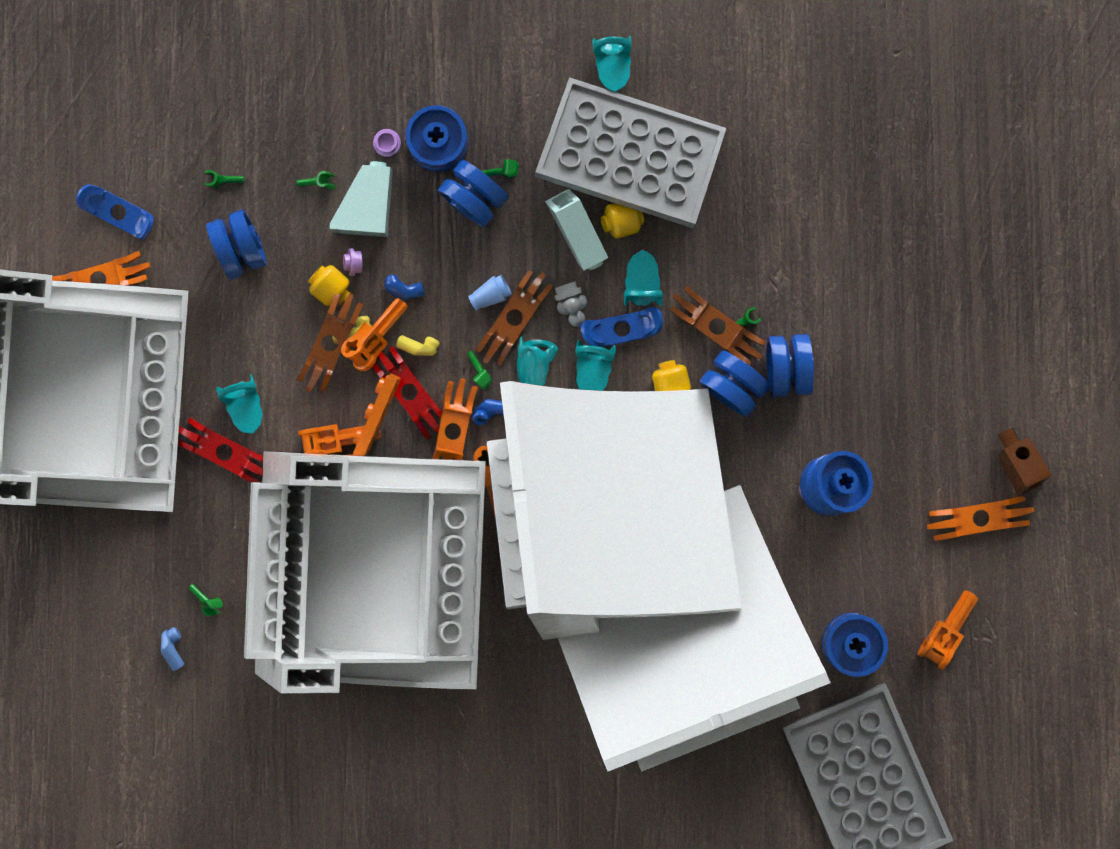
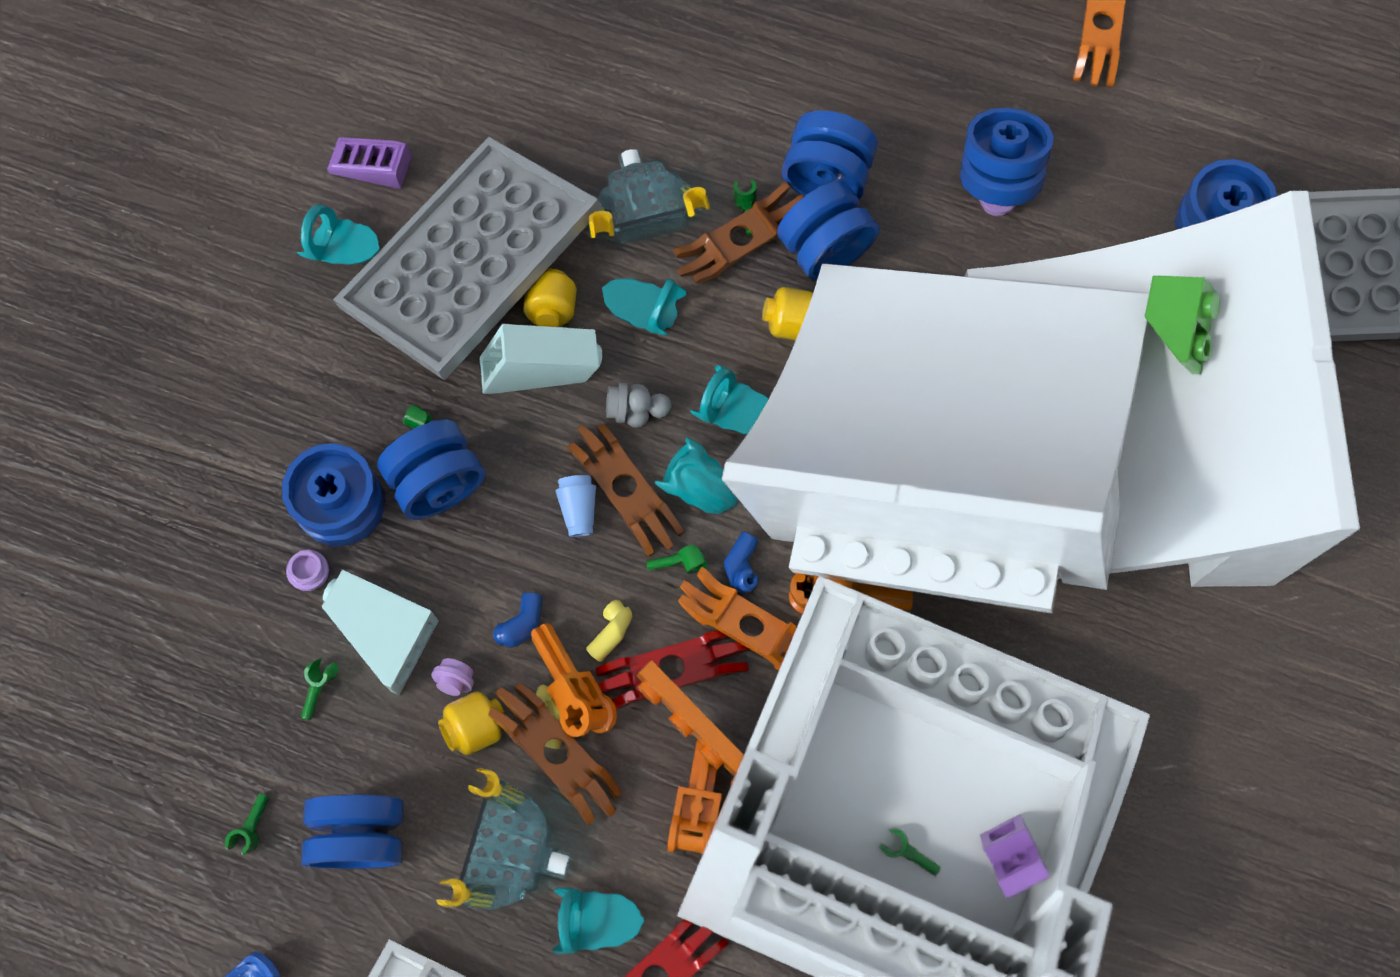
camera: 75 degrees left, 15 degrees down
(262, 337) = (505, 849): none -> clear light blue torso
(341, 571) = (911, 853): none -> green hand
(356, 632) = (1014, 856): none -> medium lavender slope
(641, 323) = (699, 328): blue piece -> none
(683, 75) = (383, 149): none -> medium lavender slope
(716, 251) = (644, 201): none -> clear light blue torso
(725, 630) = (1182, 315): none -> bright green slope
(945, 636) = (1243, 109): orange connector -> none

